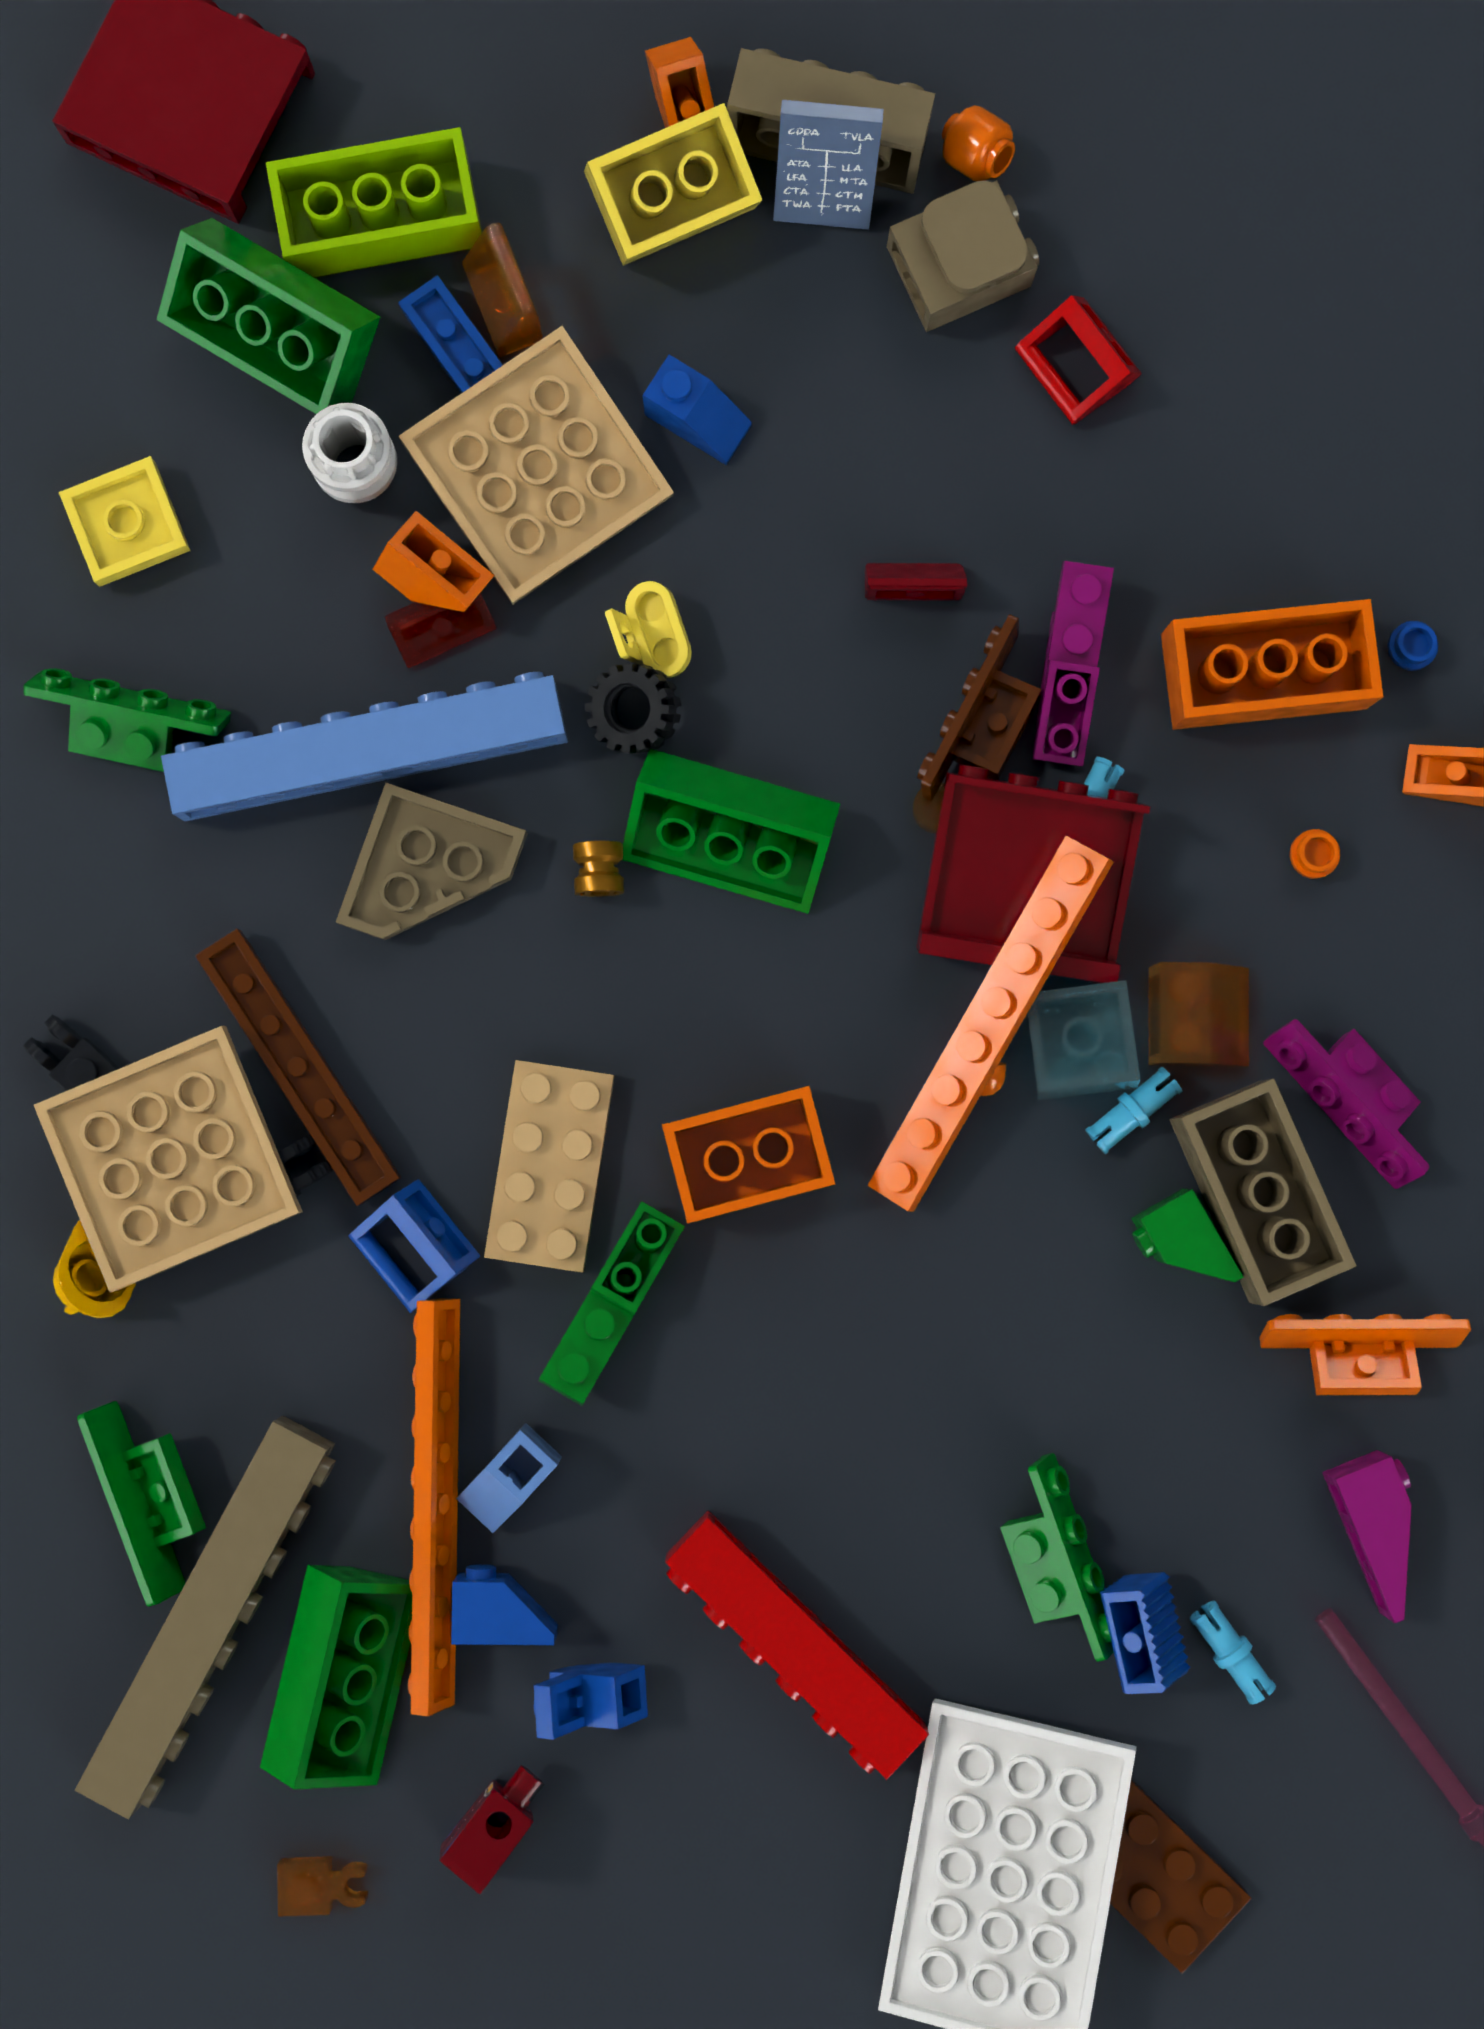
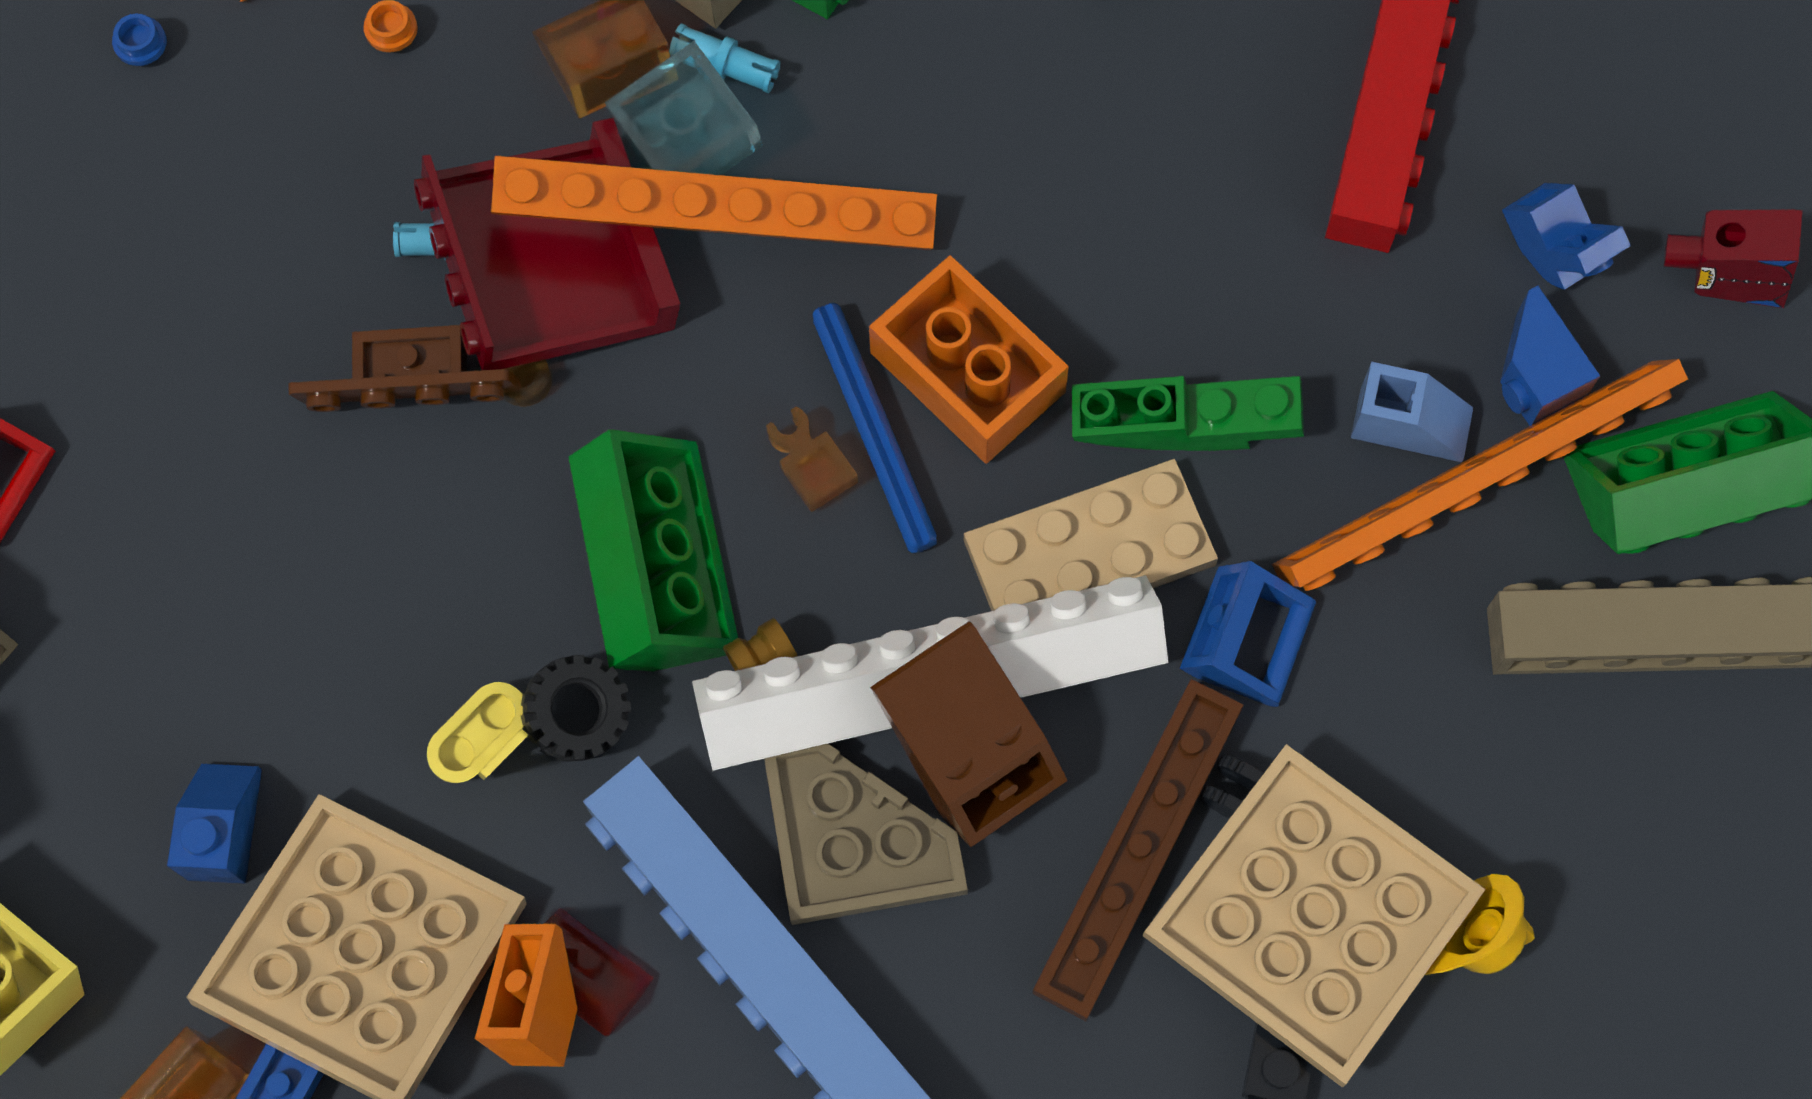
camera: 110 degrees left, 15 degrees down
(146, 1497) = (1656, 750): green bracket -> none
(435, 979) = (968, 735): none -> reddish brown slope
(509, 984) = (829, 695): none -> white brick
(730, 990) = (813, 466): none -> clear orange plate
(742, 1055) = (874, 428): none -> blue axle
(914, 581) = (295, 513): dark red slope -> none
(1072, 663) = (311, 323): magenta slope -> none
(1271, 664) = (222, 140): orange brick -> none

